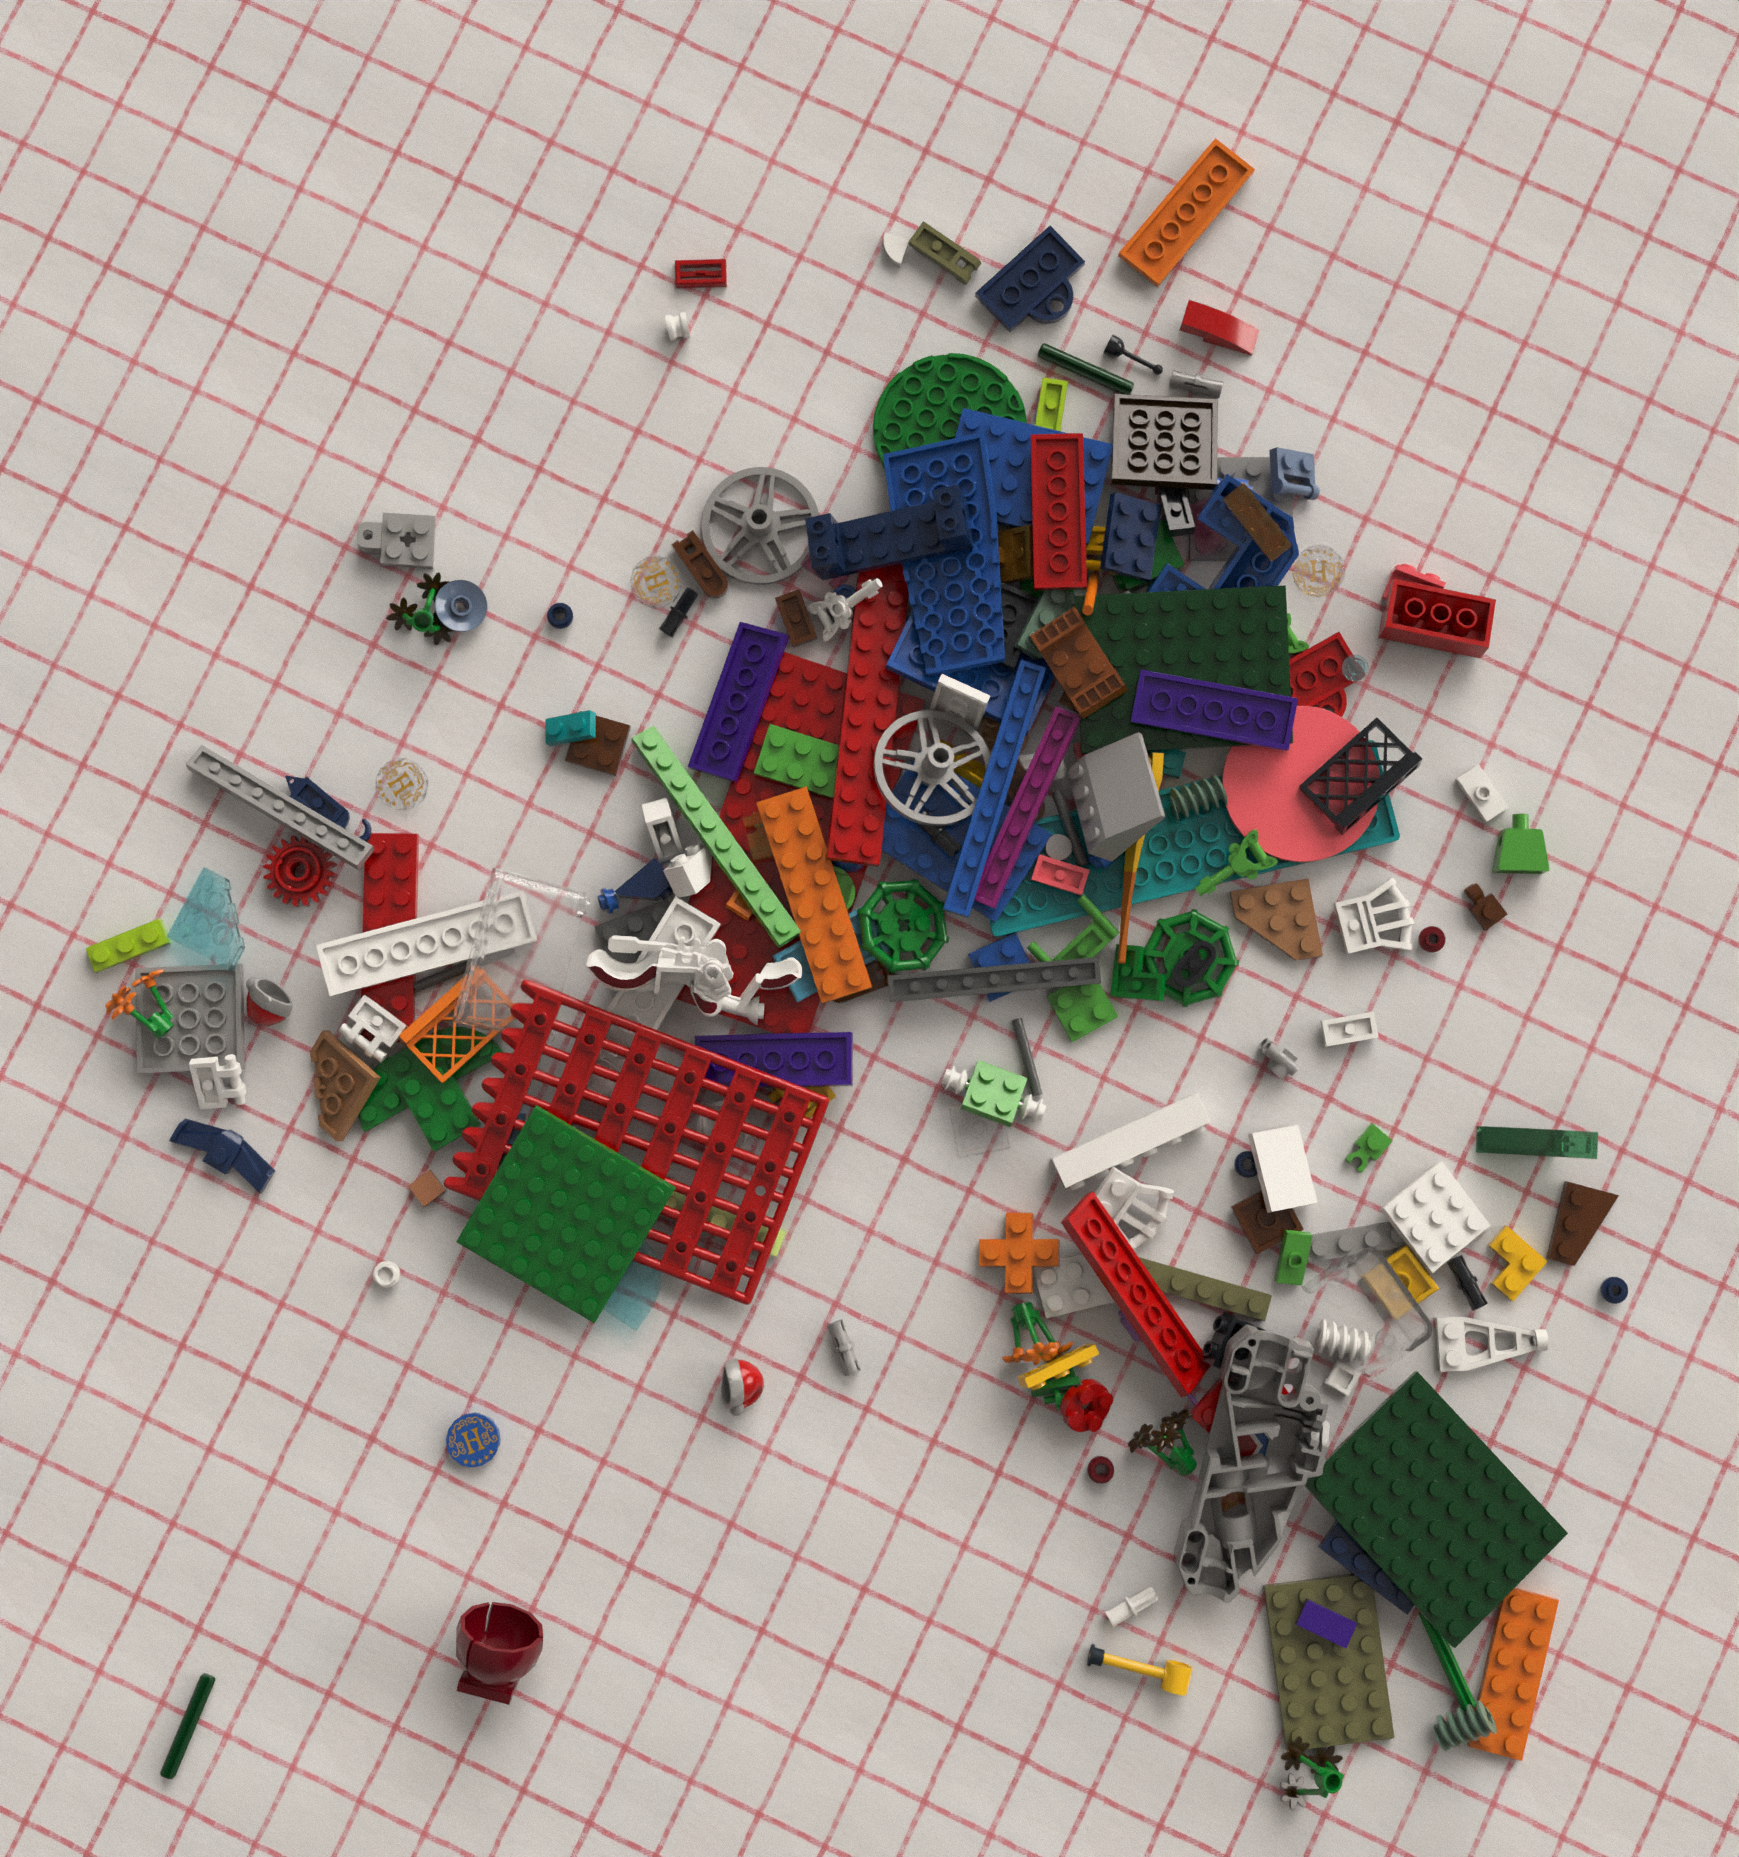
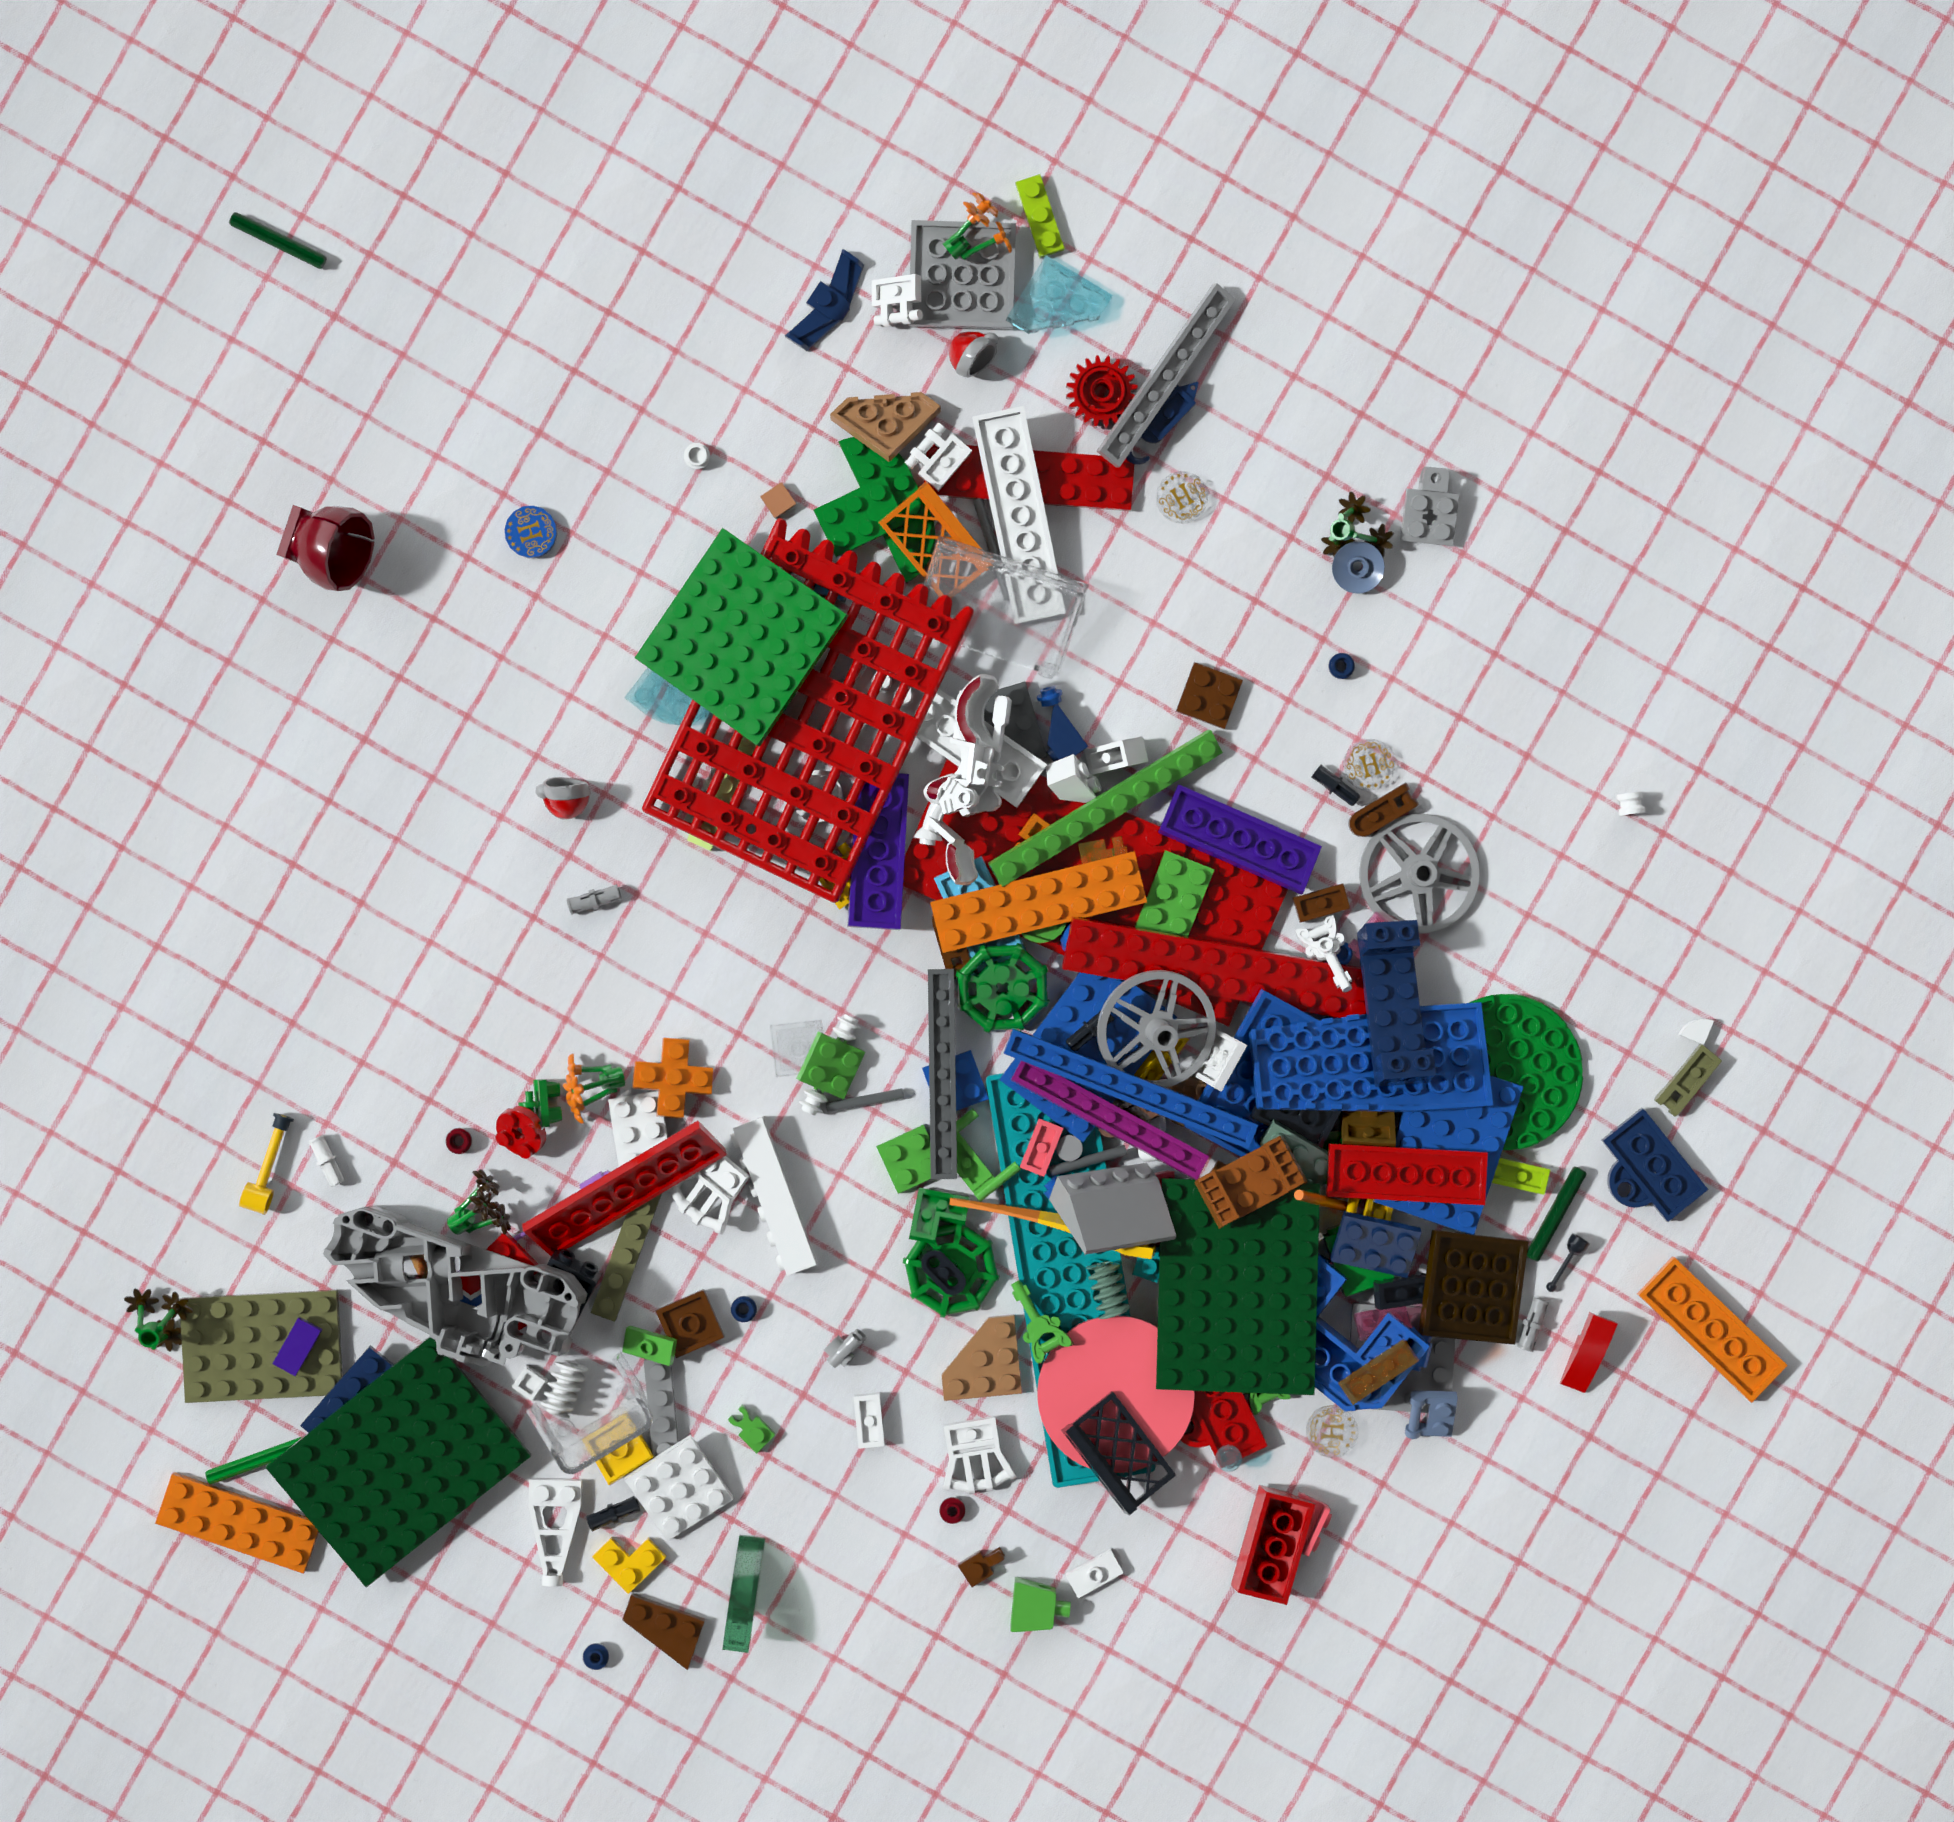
camera: 90 degrees right, 5 degrees up
(570, 728) = (1225, 669): teal plate -> none
(700, 283) = (1685, 827): red tile -> none
(1058, 1367) = (559, 1107): yellow plate -> none
(1214, 710) = (1192, 1313): dark purple plate -> none
(1282, 1168) = (736, 1342): white tile -> none
(1464, 1726) = (190, 1471): sand green piece -> none

